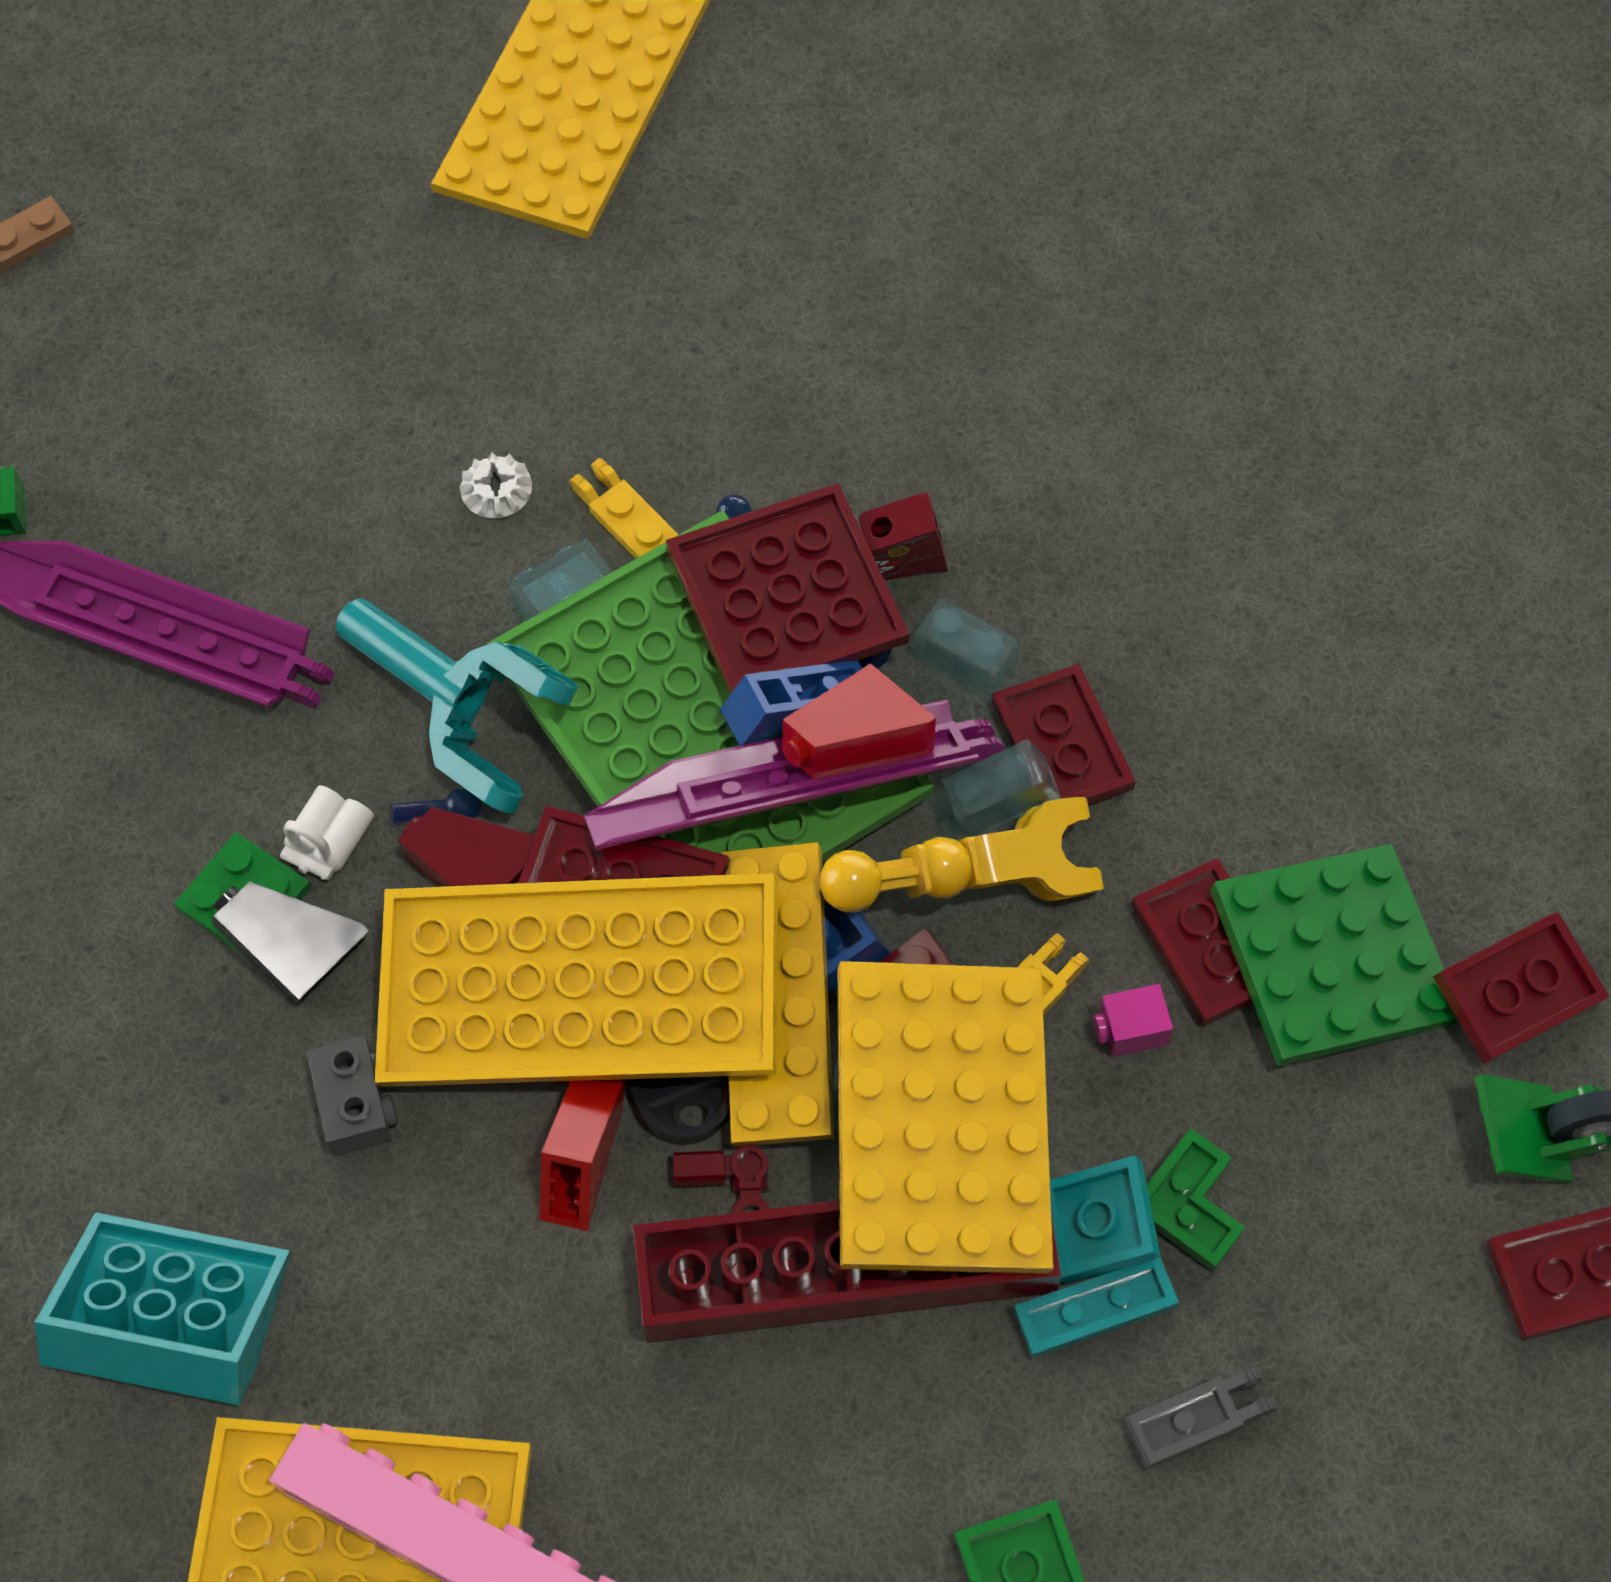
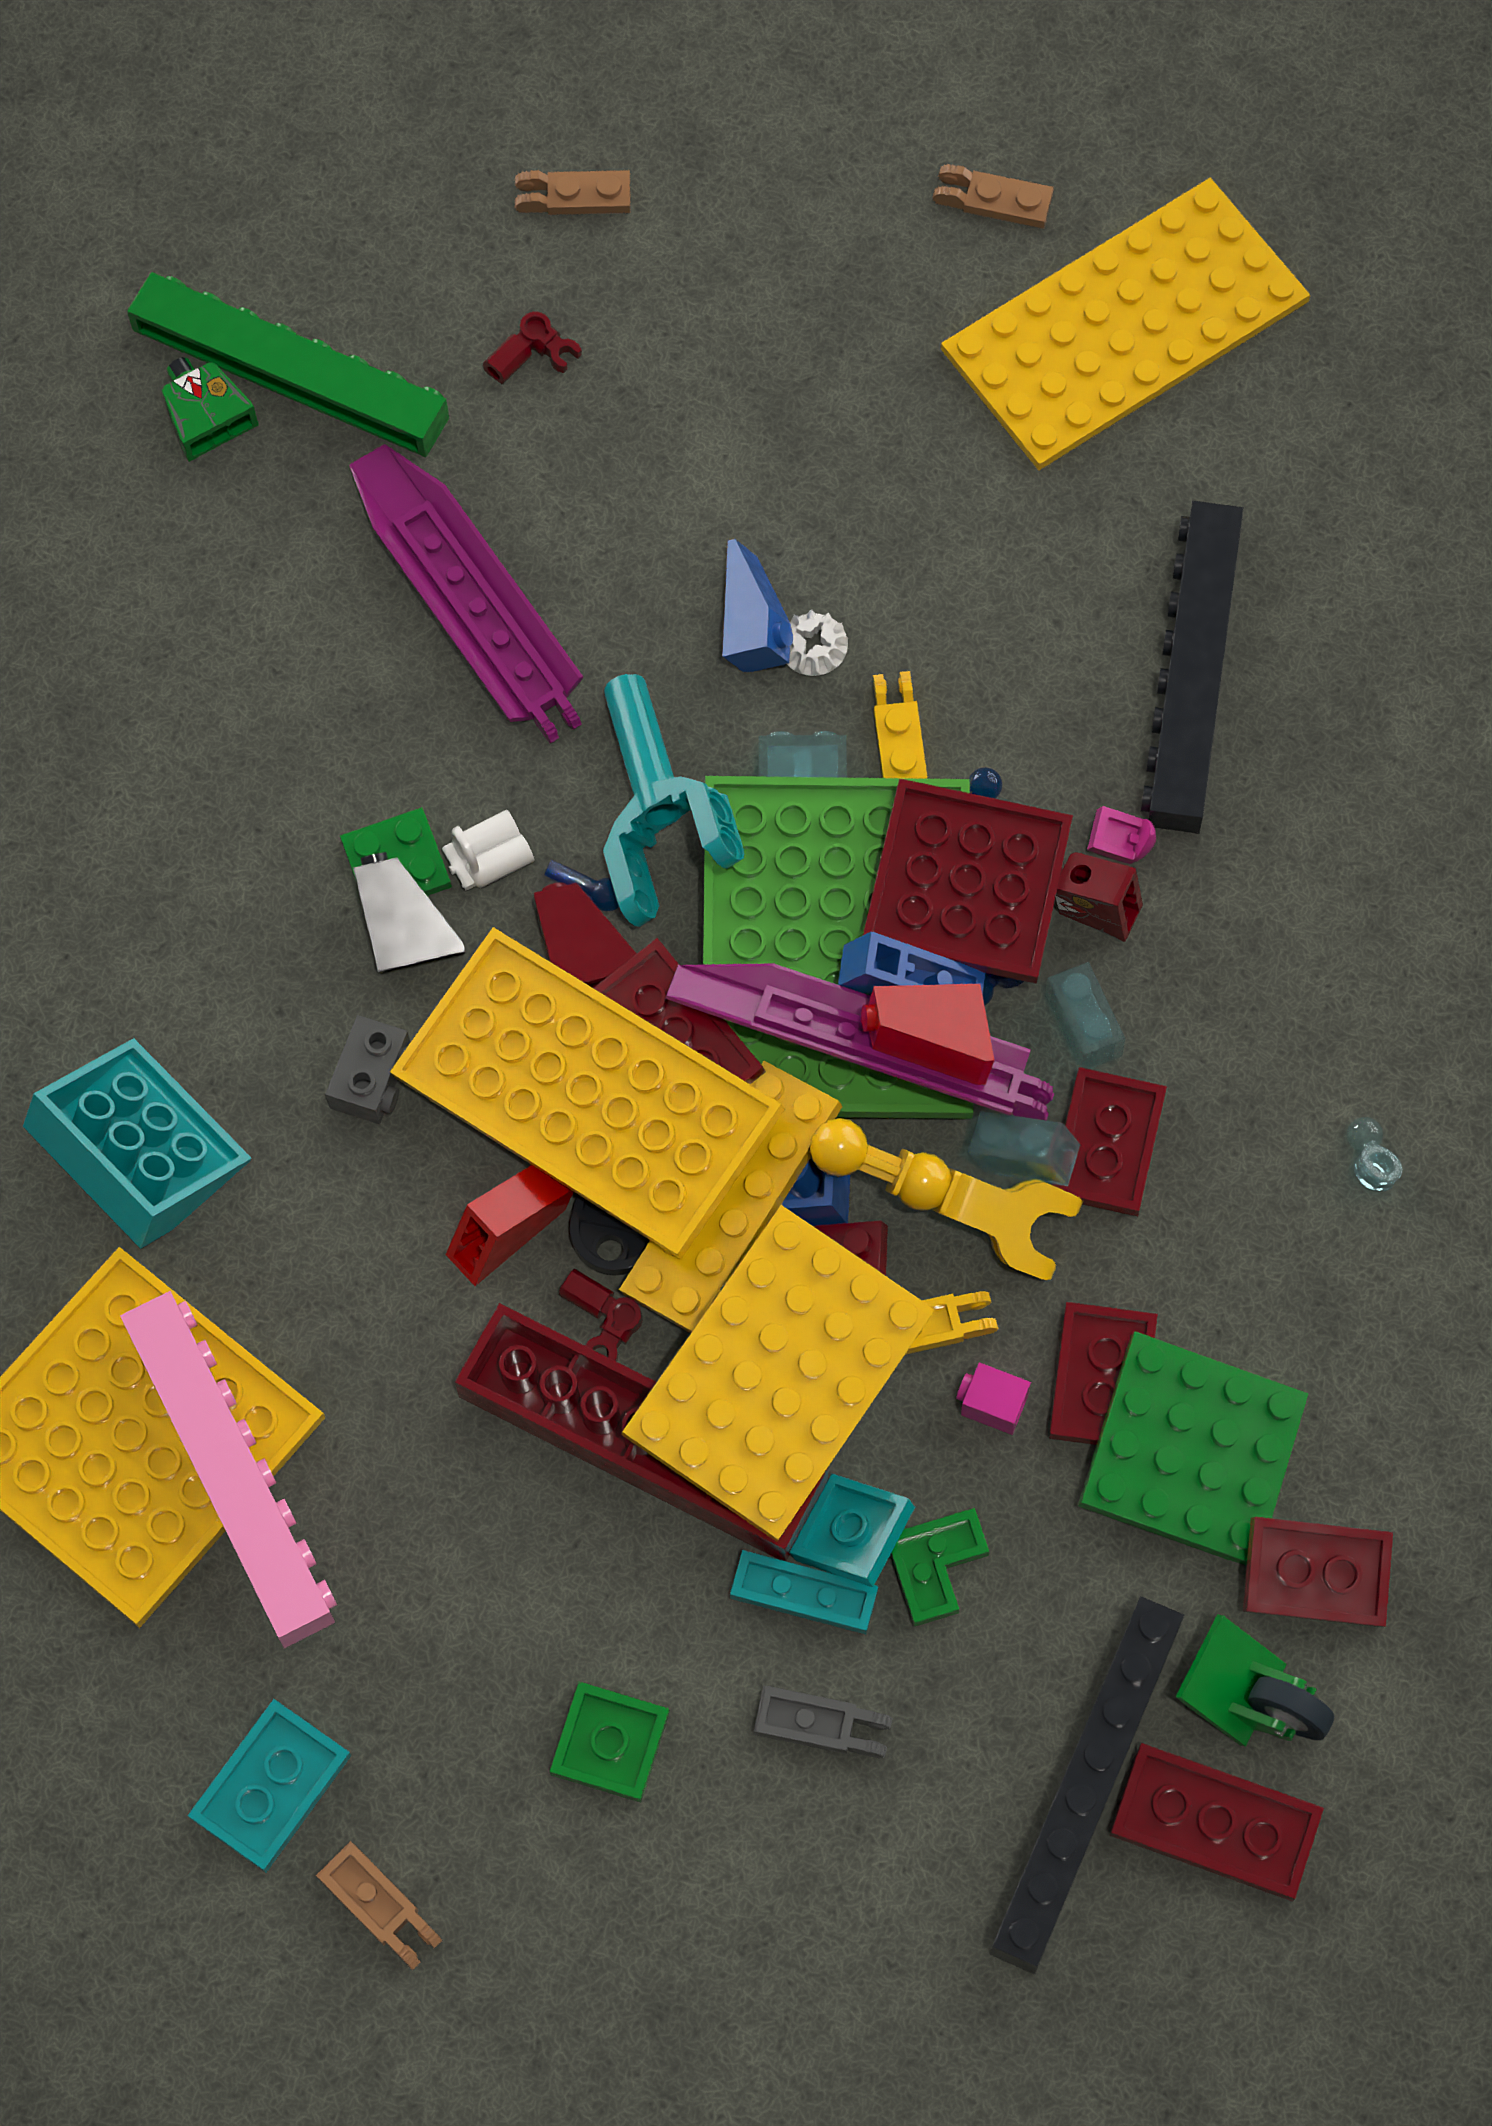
camera: 35 degrees right, 5 degrees up
(57, 374) = (535, 335): none -> dark red bar
(390, 48) = (994, 196): none -> medium nougat hinge
(436, 498) = (754, 621): none -> slope
(843, 317) = (1195, 667): none -> black brick
(883, 481) = (1121, 836): none -> dark pink plate
(1297, 620) = (1376, 1165): none -> clear light blue plate
(1477, 1312) = (1087, 1785): none -> black brick

